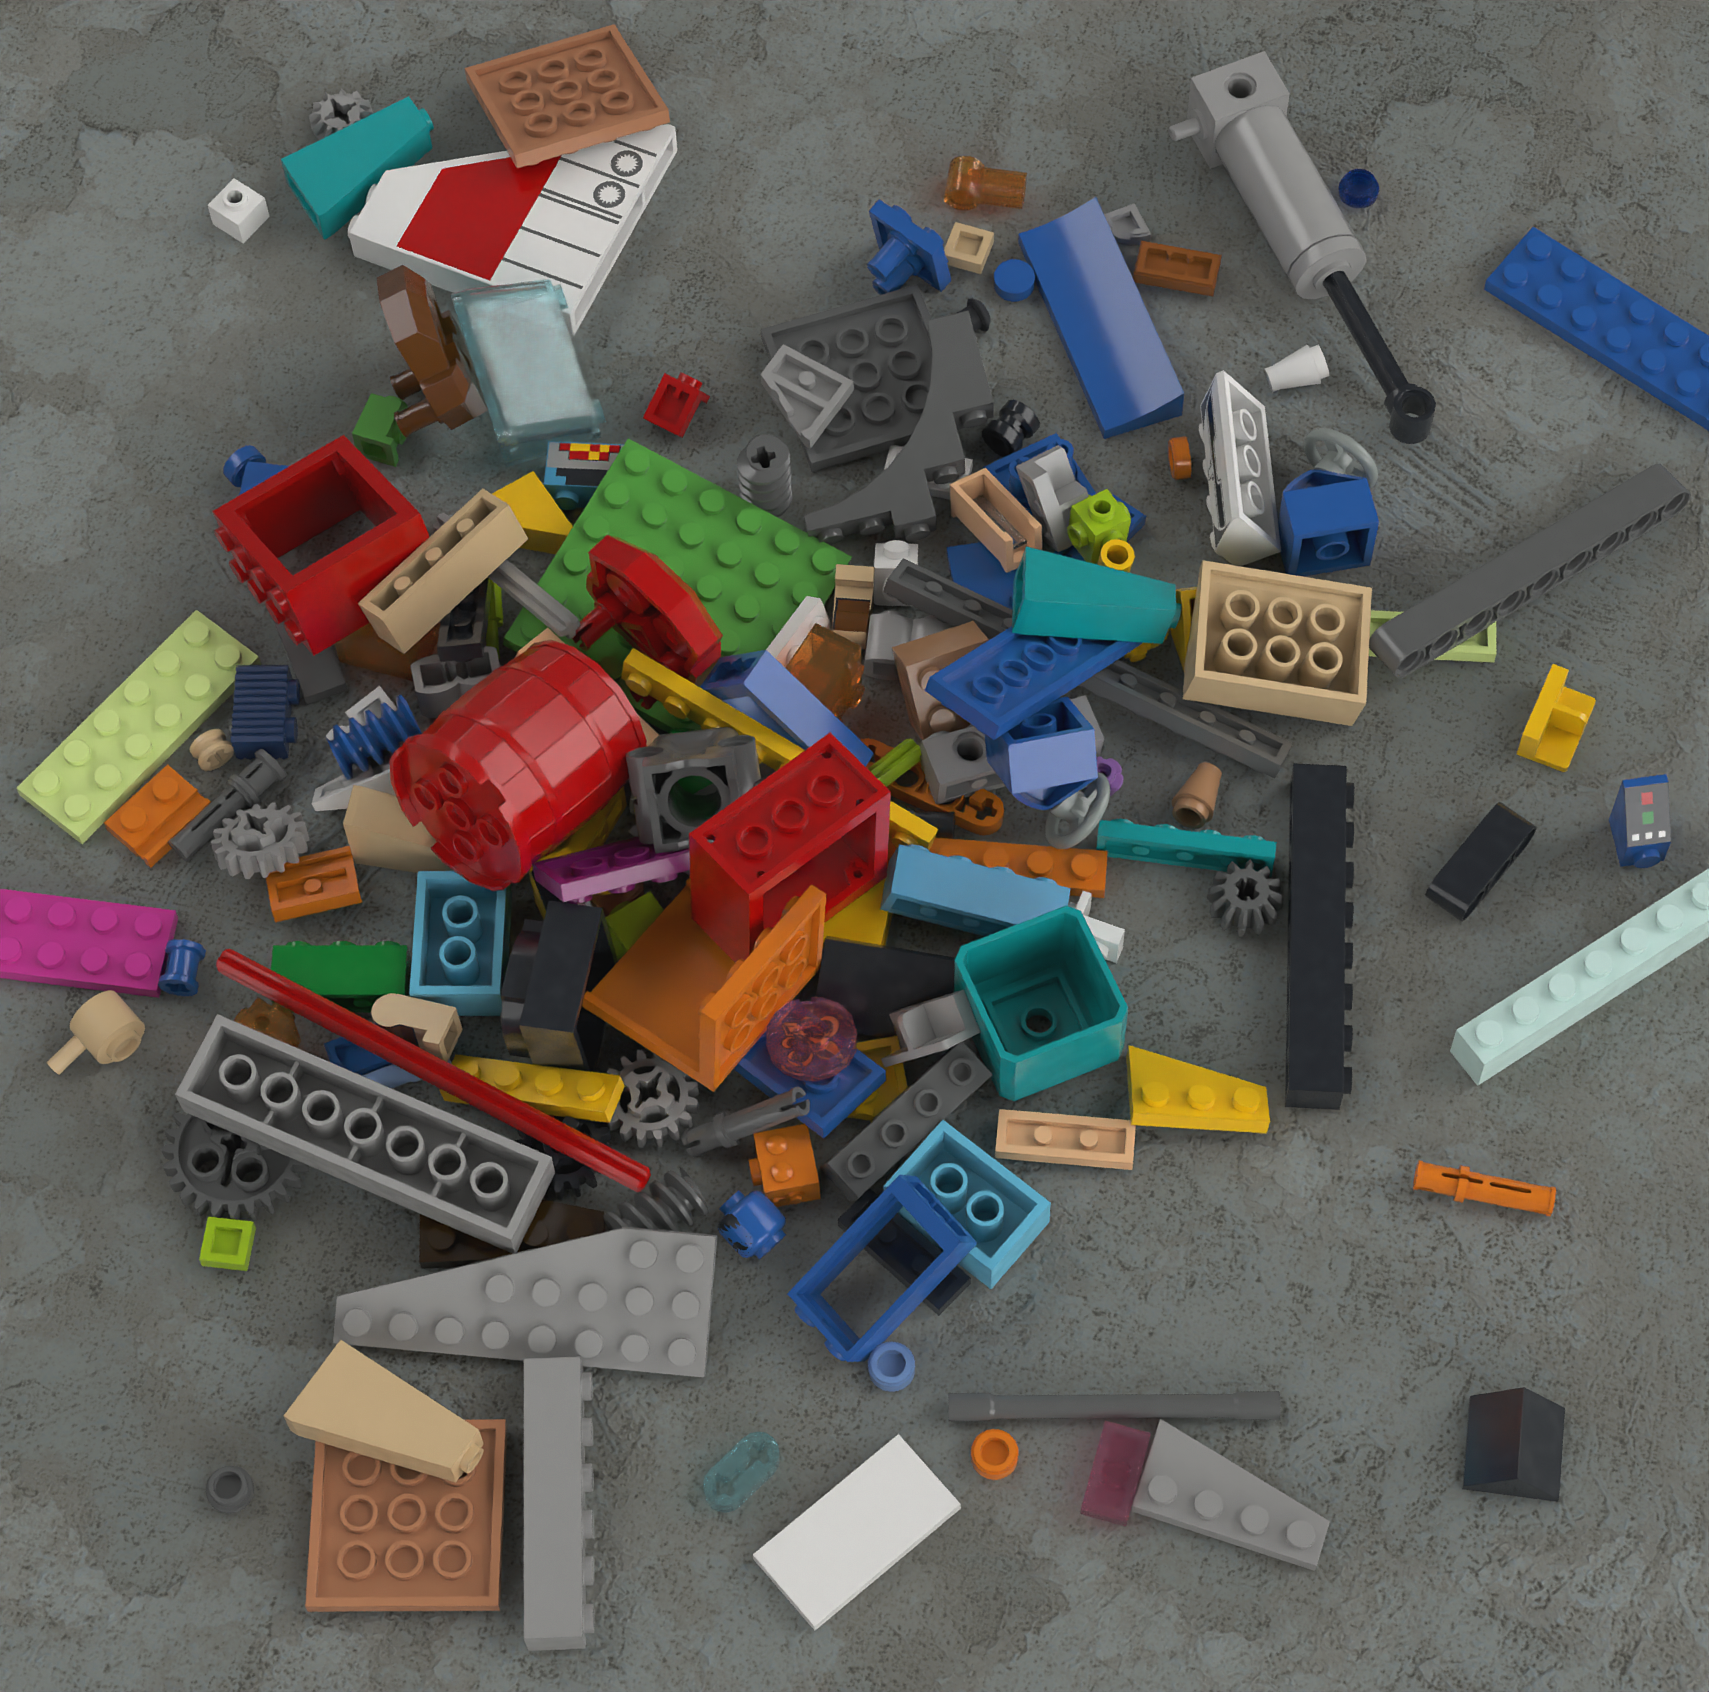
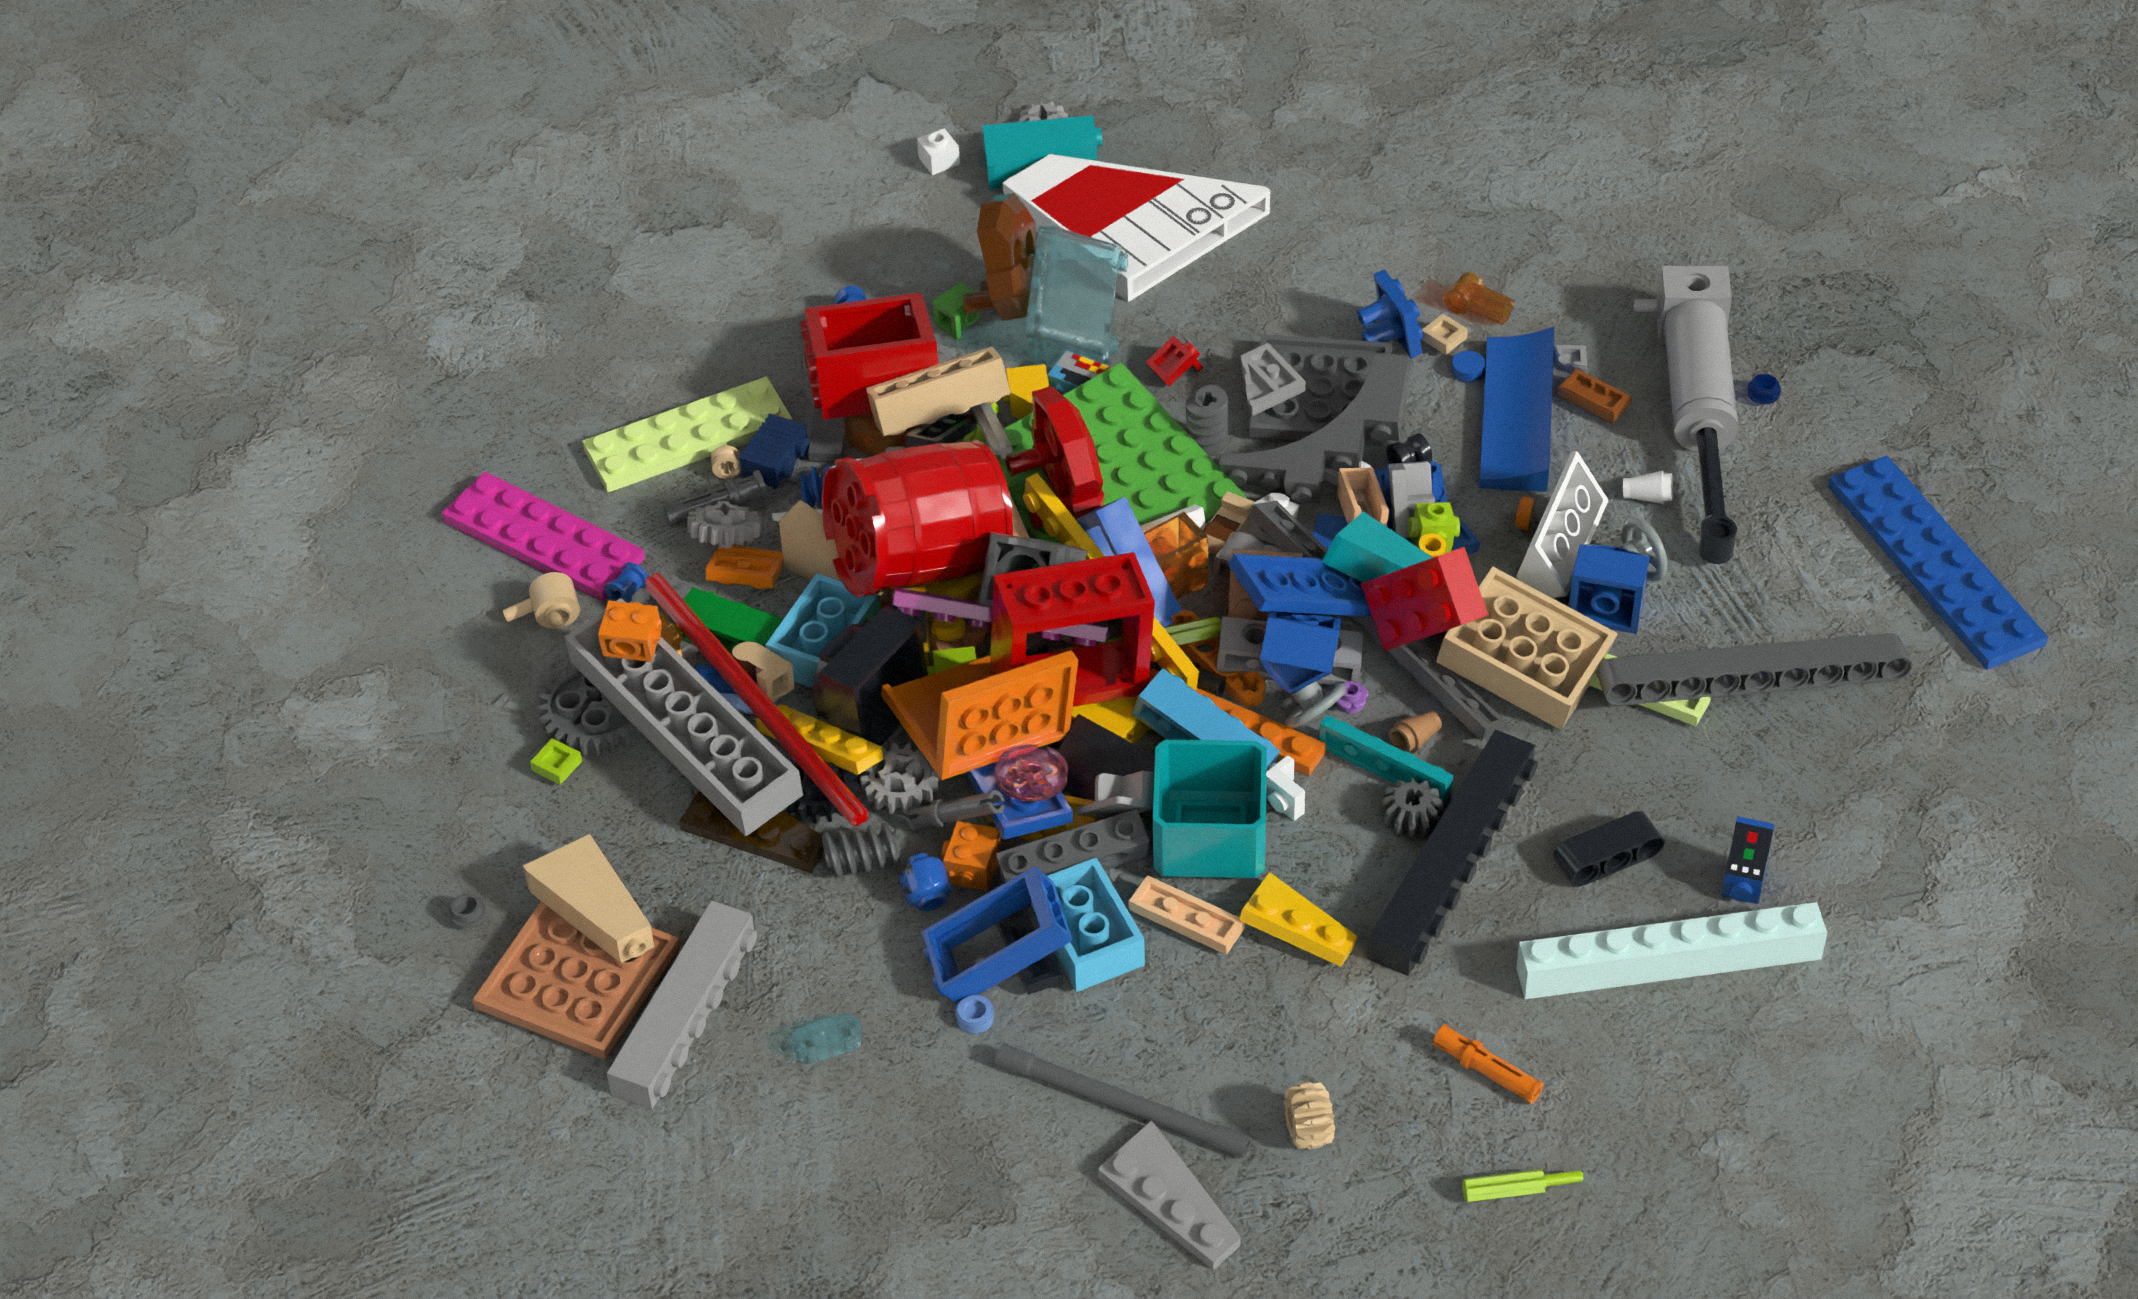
camera: 25 degrees right, 15 degrees down
(156, 815) = (664, 488): orange plate -> none
(259, 1059) = (630, 631): none -> orange head
(566, 96) = (1204, 149): nougat plate -> none
(605, 1297) = (793, 885): light grey wing -> none
(856, 1532) = (886, 1108): white tile -> none
(979, 315) = (1423, 378): black piece -> none
(994, 1454) = (1016, 1098): orange tile -> none
(1115, 1473) = (1097, 1142): clear pink plate -> none
(1161, 643) = (1424, 599): none -> red brick
(1334, 1342) = (1309, 1115): none -> tan gear
(1514, 1444) = (1416, 1243): black slope -> none
(1556, 722) = (1720, 778): yellow panel -> none
(1583, 1324) = (1515, 1184): none -> lime axle

